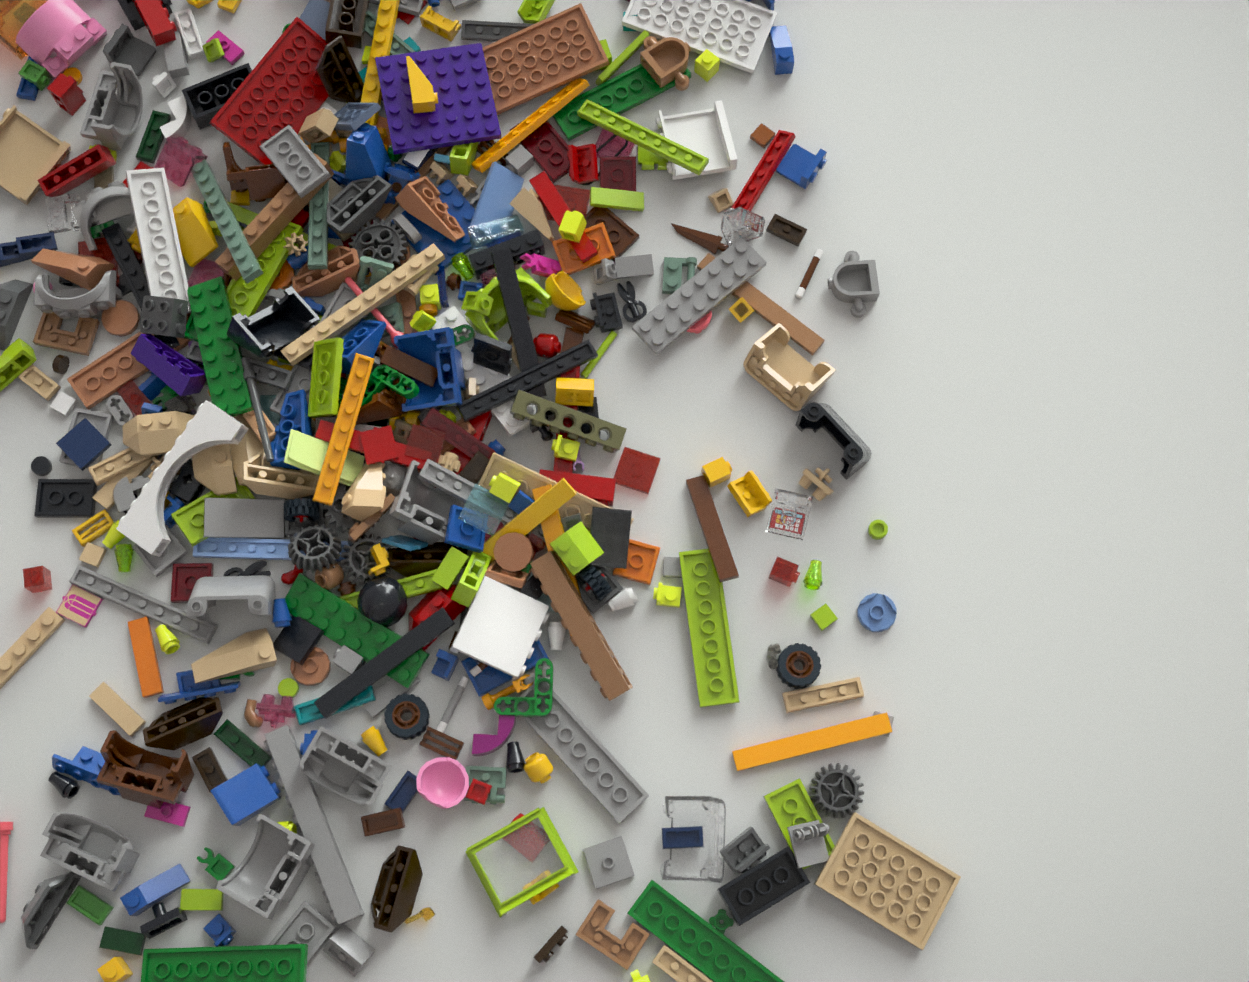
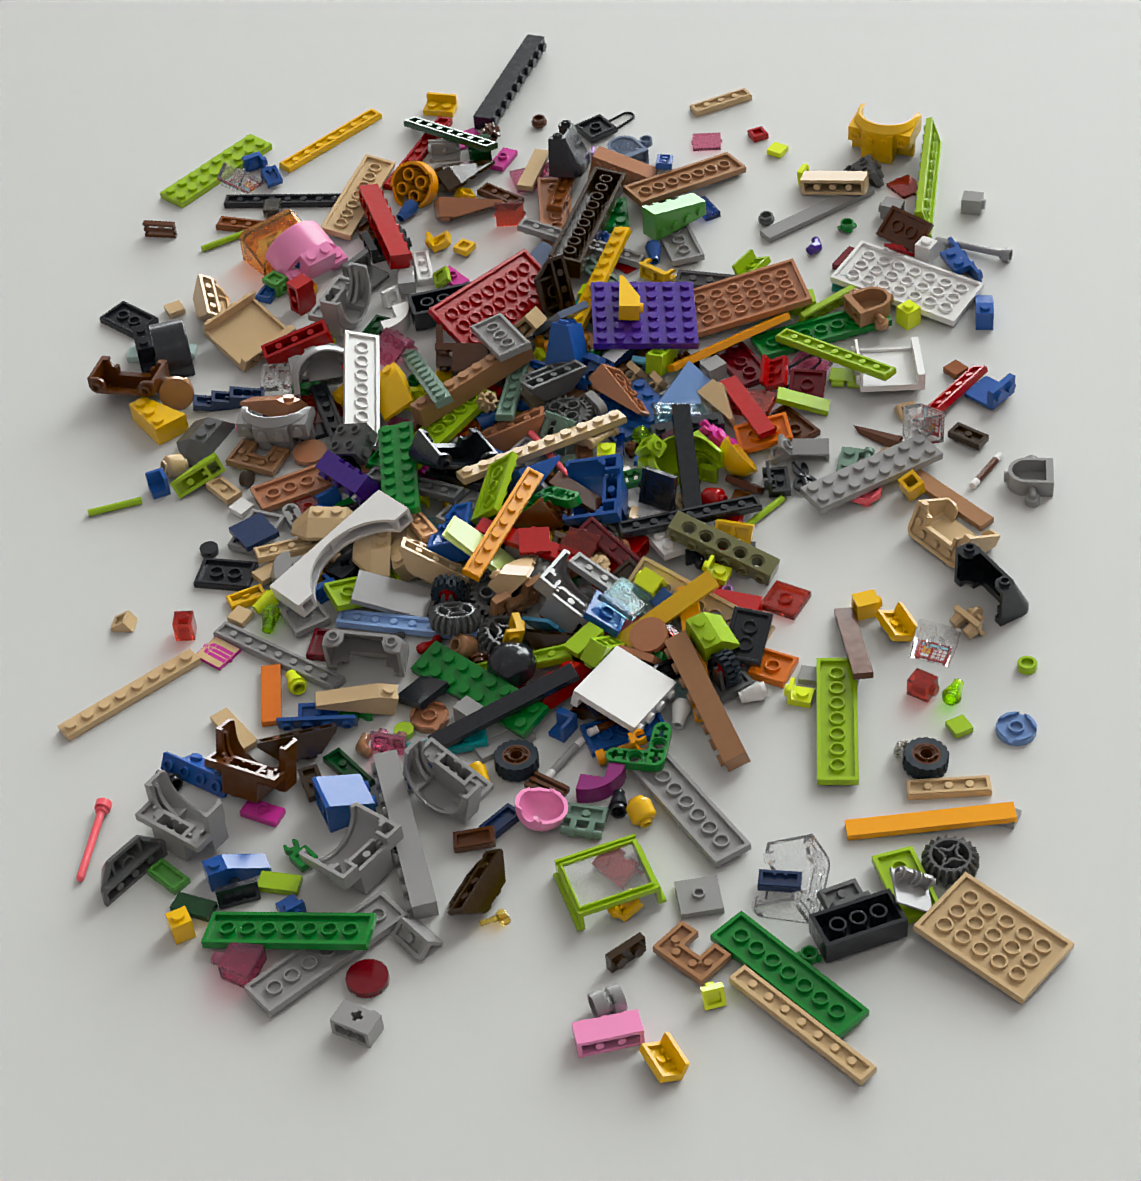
camera: 15 degrees right, 30 degrees down
(249, 376) = (422, 486): dark grey bar -> none
(281, 614) = (410, 669): blue cone -> none
(478, 791) = (576, 821): red tile -> none
(572, 226) = (754, 407): neon yellow brick -> none

